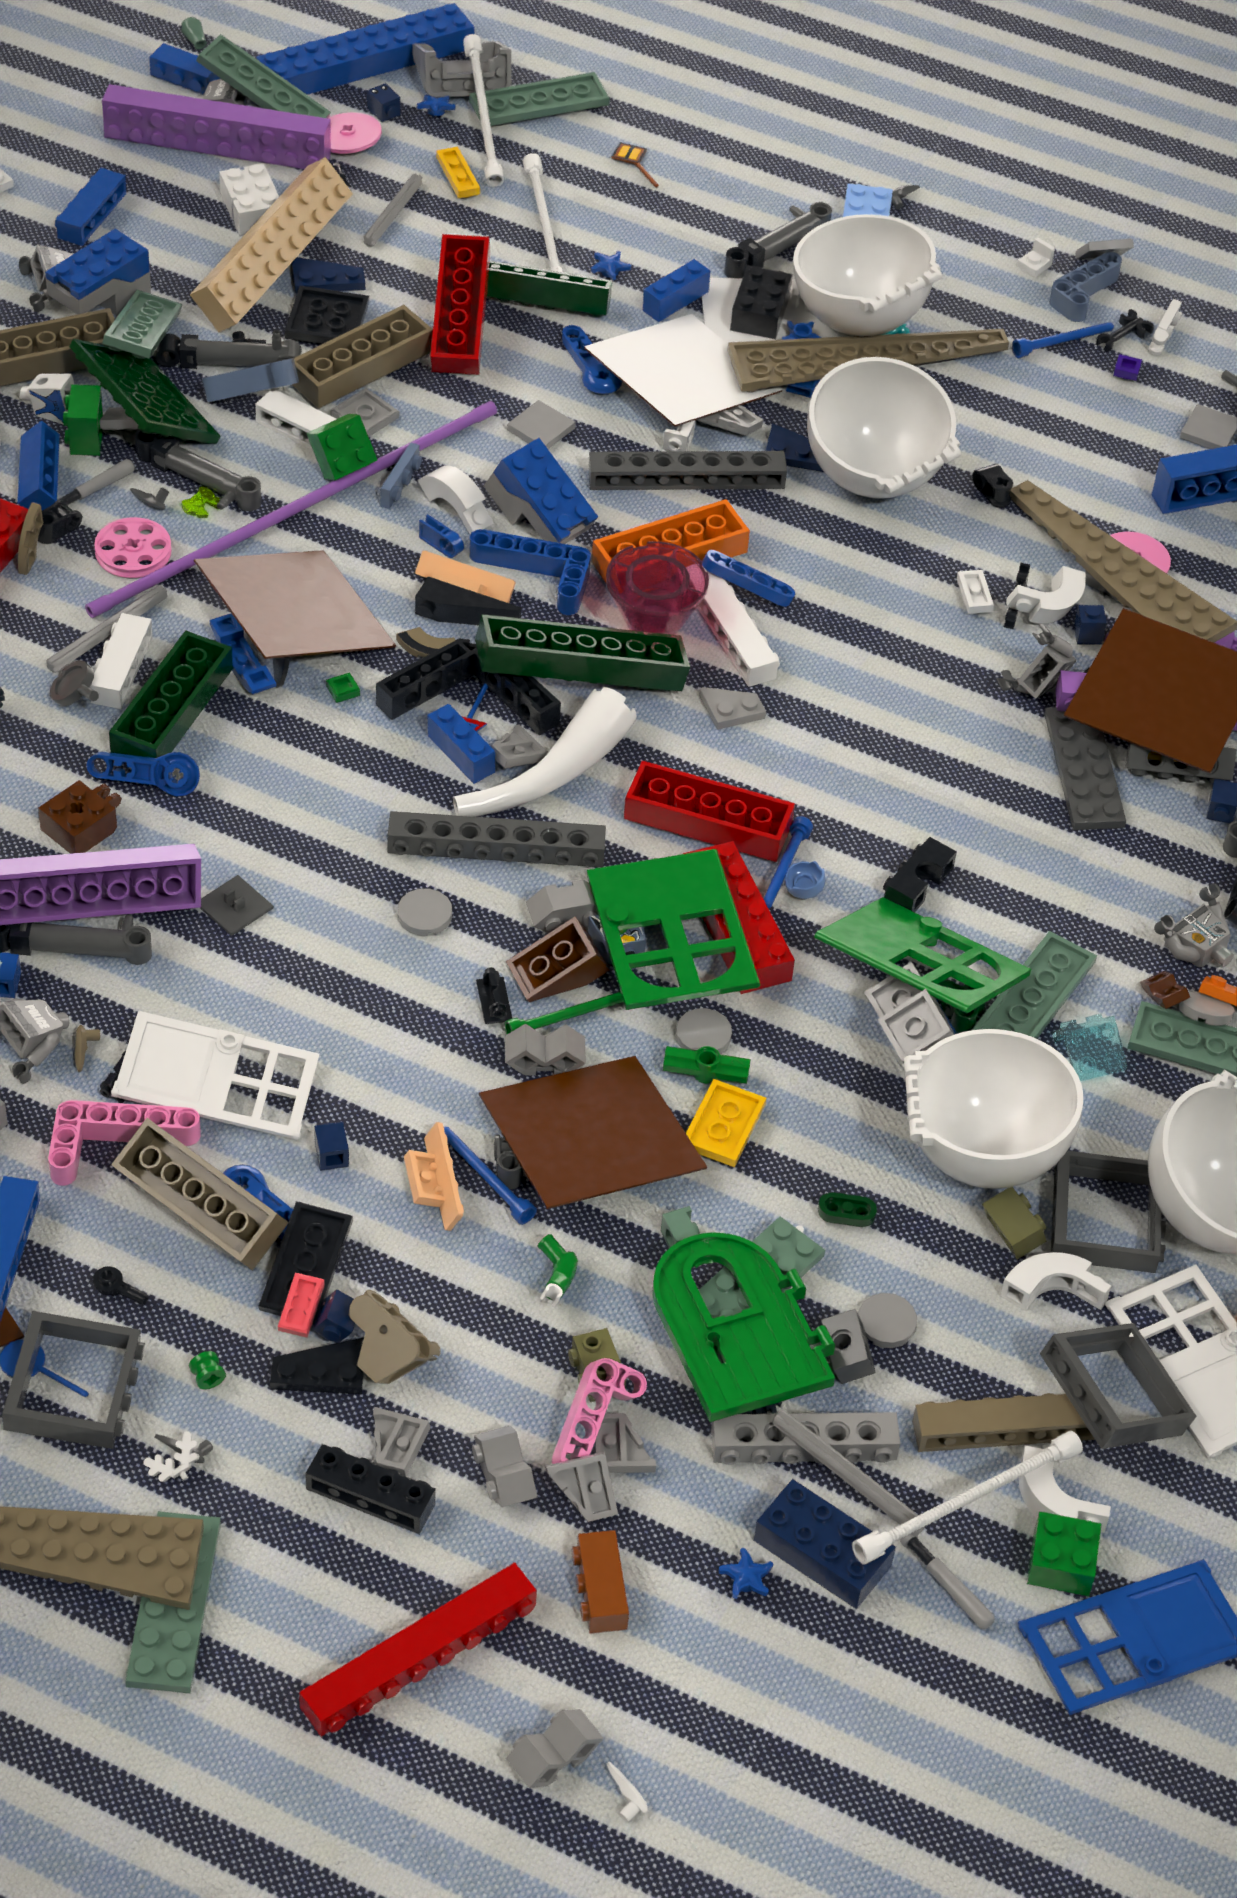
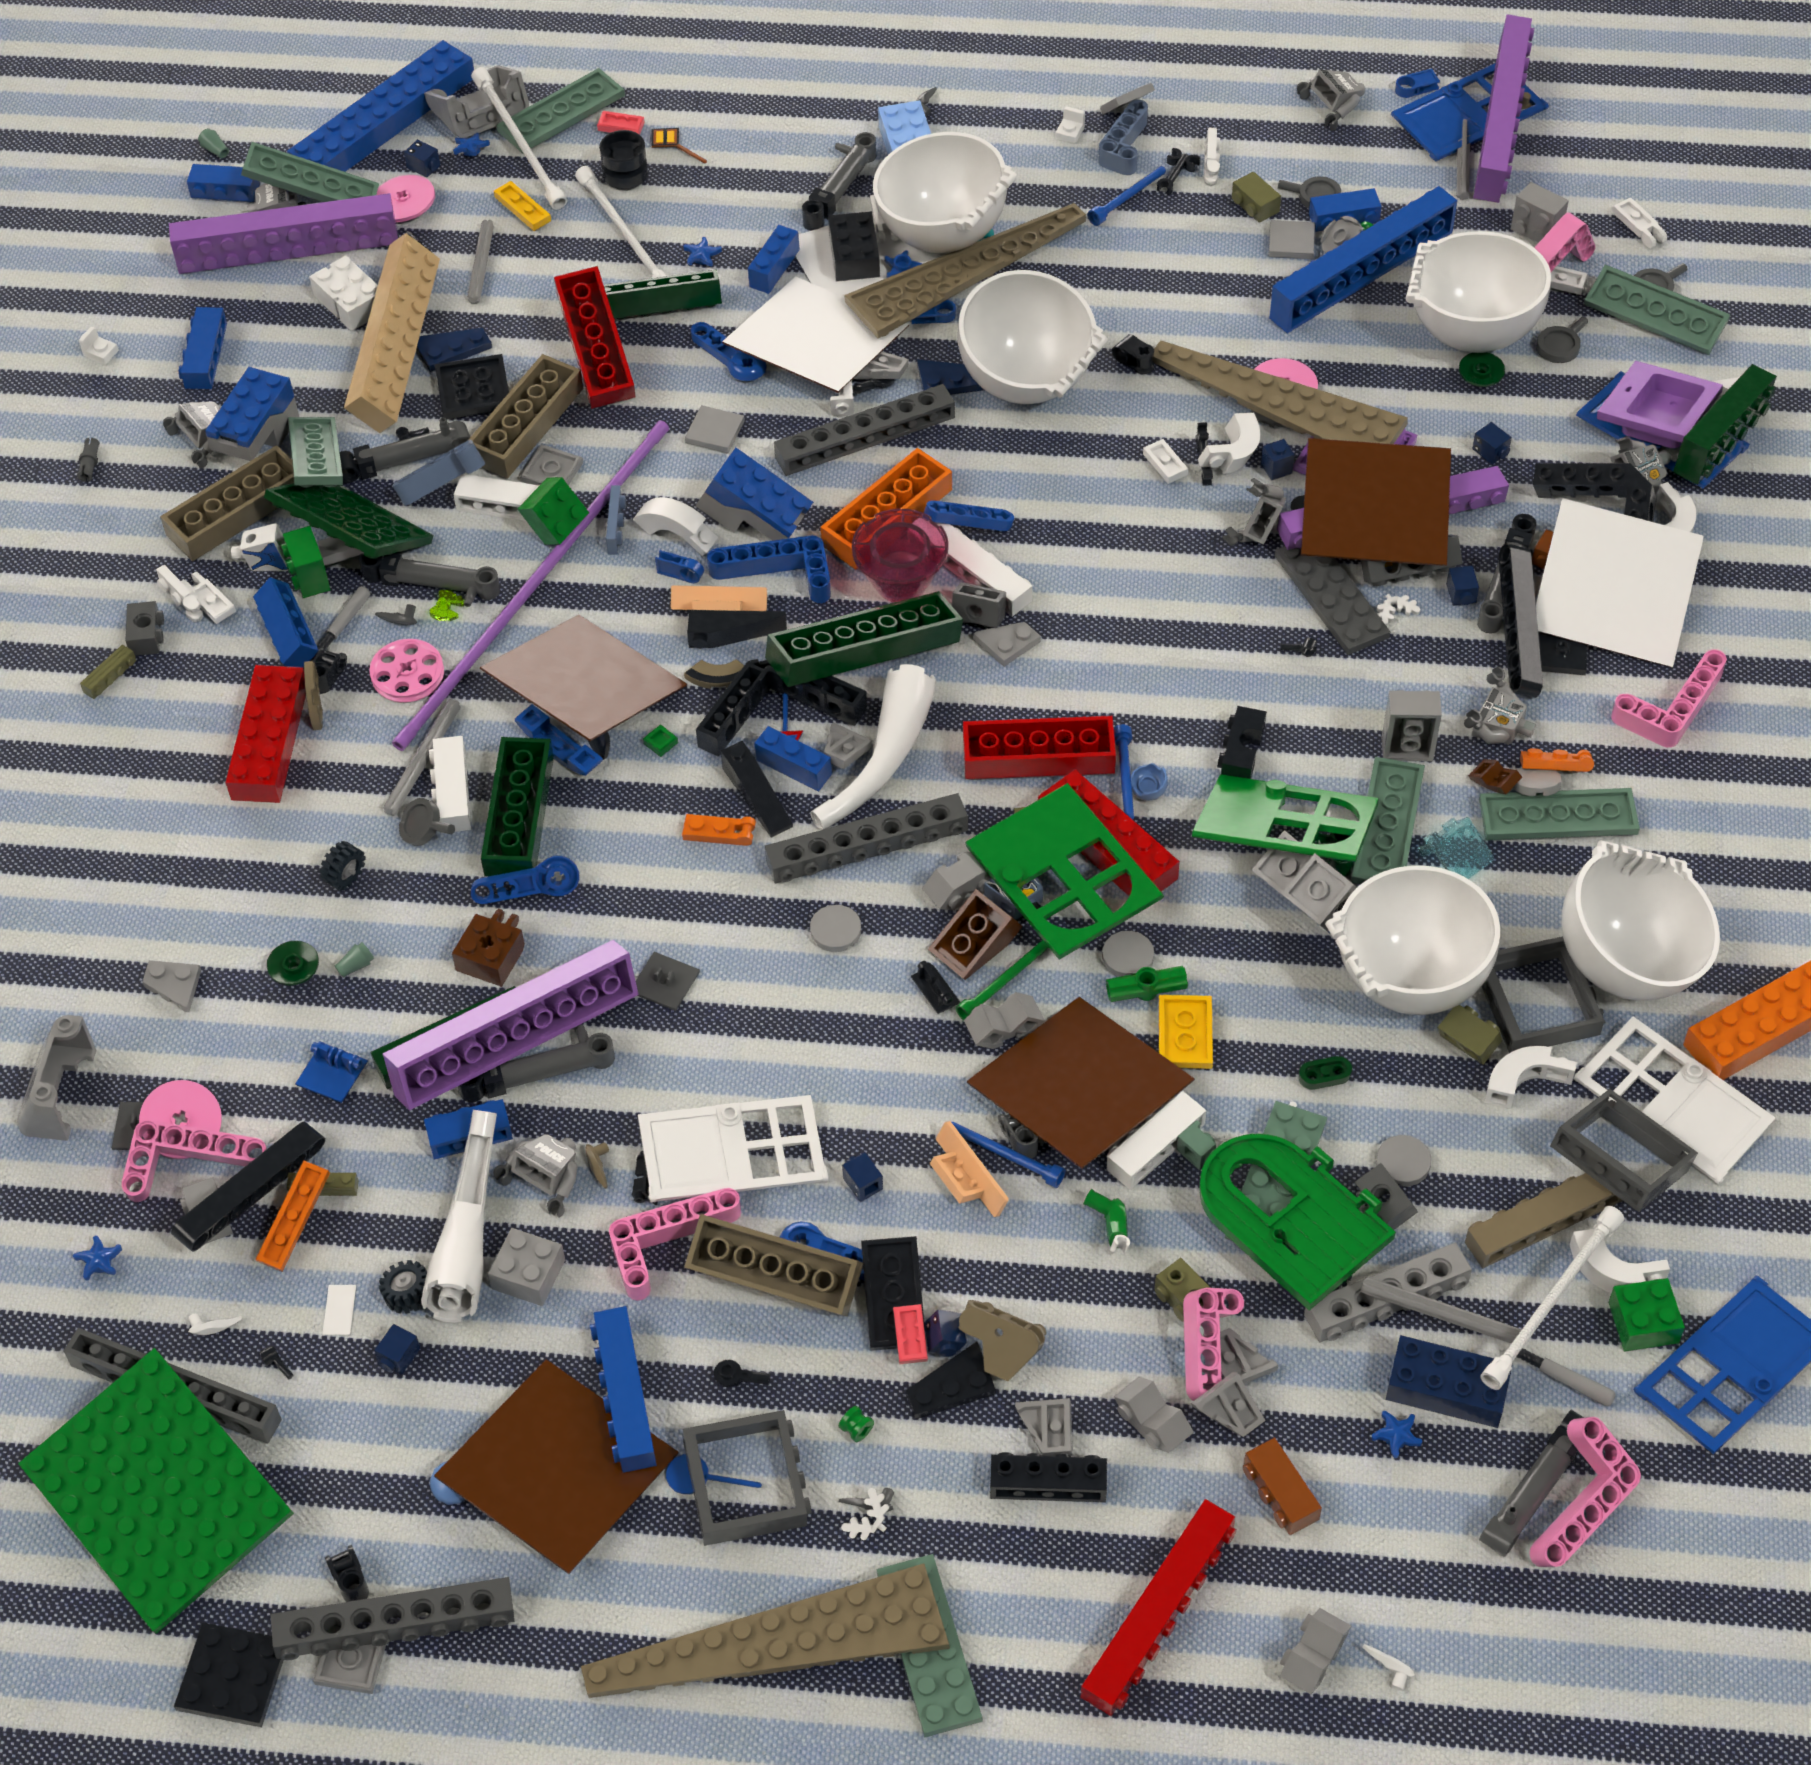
camera: 15 degrees left, 5 degrees up
(357, 785) = (719, 829): none -> orange plate
(410, 759) = (754, 788): none -> black slope
(574, 158) = (623, 159): none -> black wheel
(591, 128) = (614, 121): none -> coral plate
(638, 1212) = (1154, 1141): none -> white brick
(715, 431) = (871, 384): none -> black piece
(716, 662) = (989, 600): none -> dark grey brick
(908, 1653) = (1512, 1518): none -> dark grey piece
(915, 1709) = (1591, 1498): none -> bright pink beam
(1032, 810) = (1307, 648): none -> black hand
(1096, 910) = (1411, 725): none -> light grey brick
(1127, 367) = (1196, 205): dark purple plate -> none
(1132, 800) = (1386, 610): none -> white animal
(1192, 378) = (1256, 197): none -> olive brick

